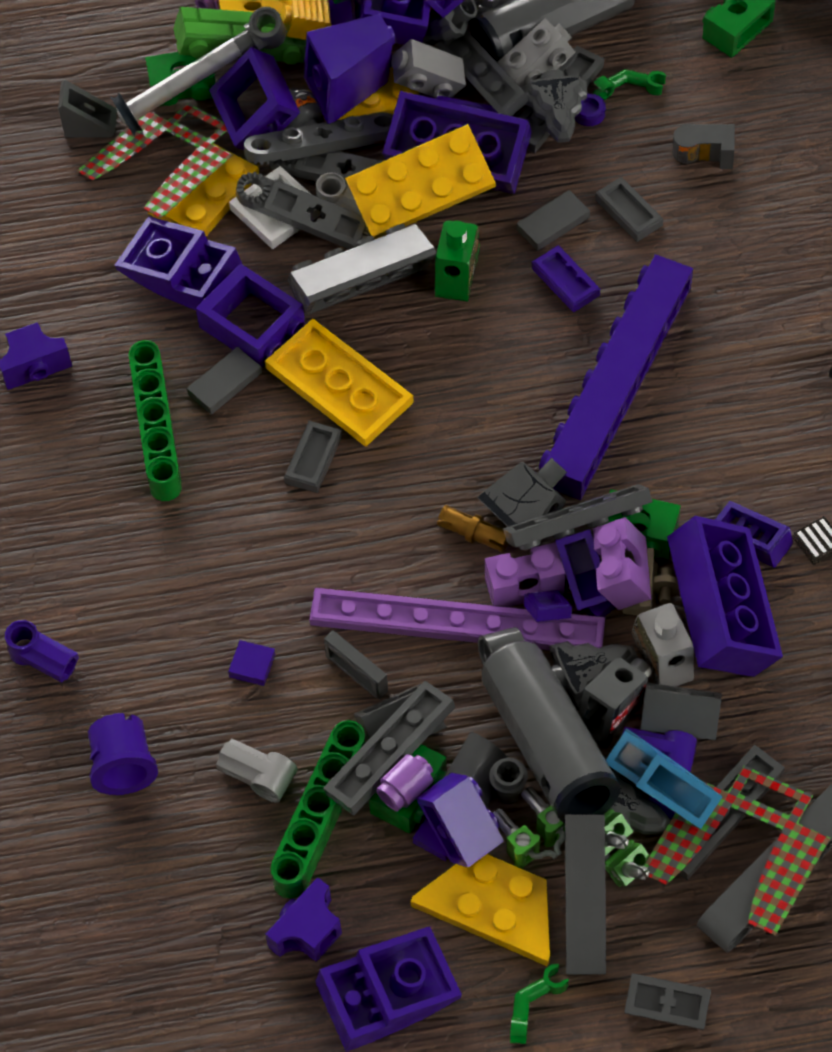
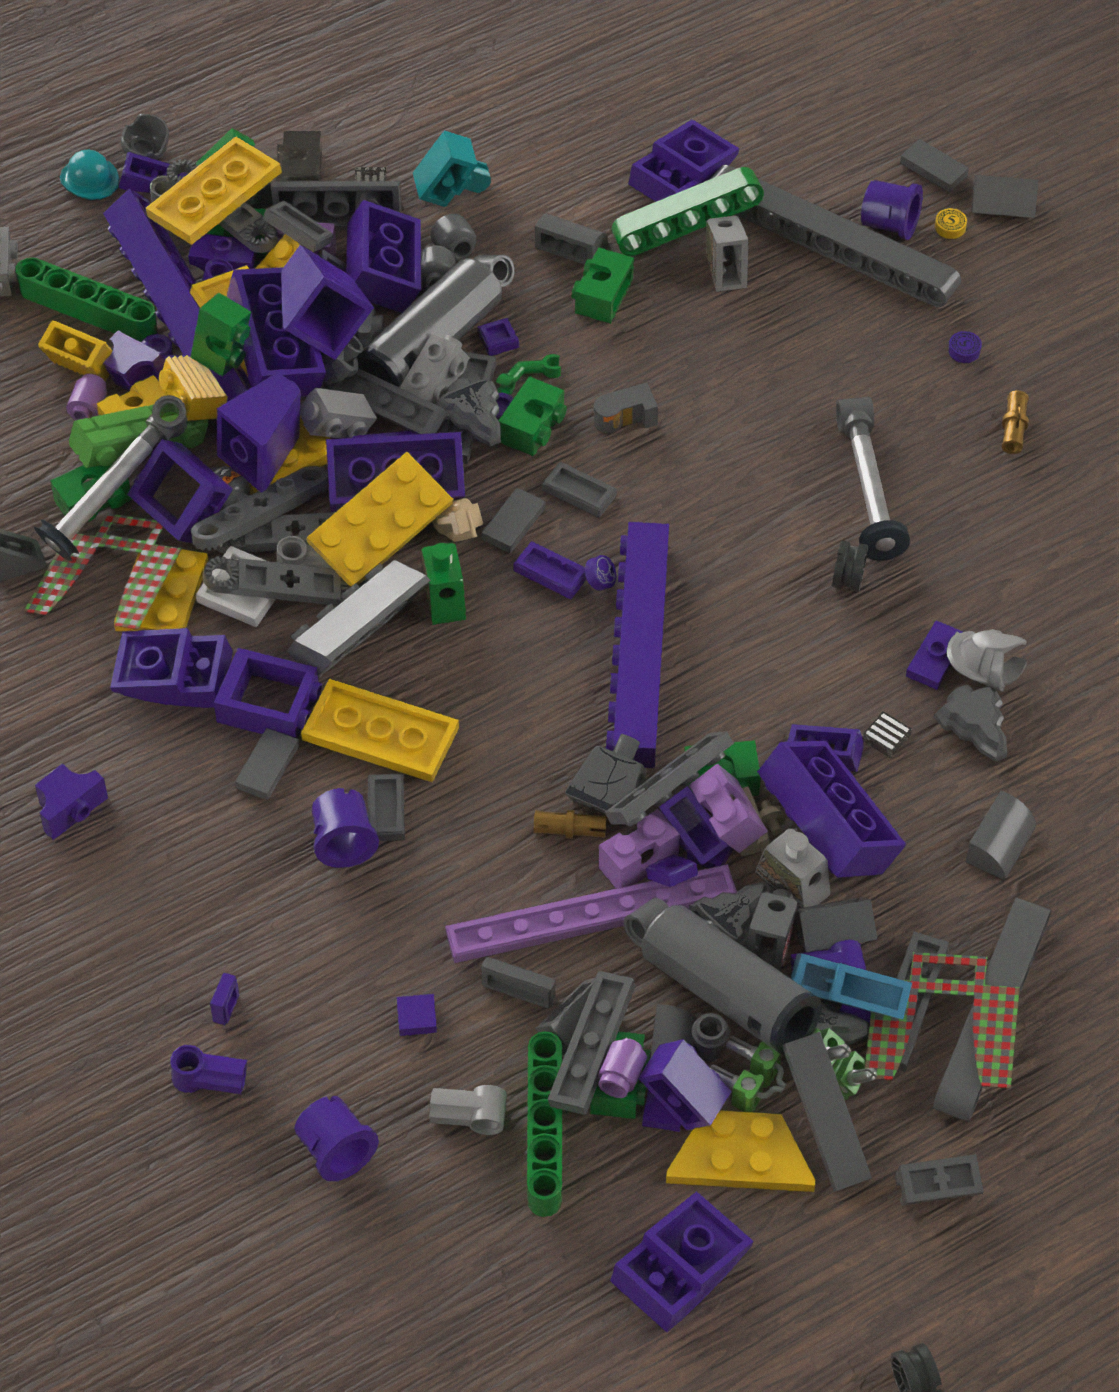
camera: 25 degrees left, 5 degrees down
(84, 588) = (224, 999): none -> dark purple tile
(159, 432) = (221, 834): green beam -> none
(258, 464) = (343, 829): none -> dark purple piece
(306, 924) = (581, 1230): dark purple brick -> none
(500, 204) = (459, 520): none -> tan piece
(528, 994) = (814, 1248): green arm -> none
(610, 295) = (600, 572): none -> dark purple tile
(612, 124) = (530, 415): none -> green brick
(618, 40) = (498, 337): none -> dark purple tile

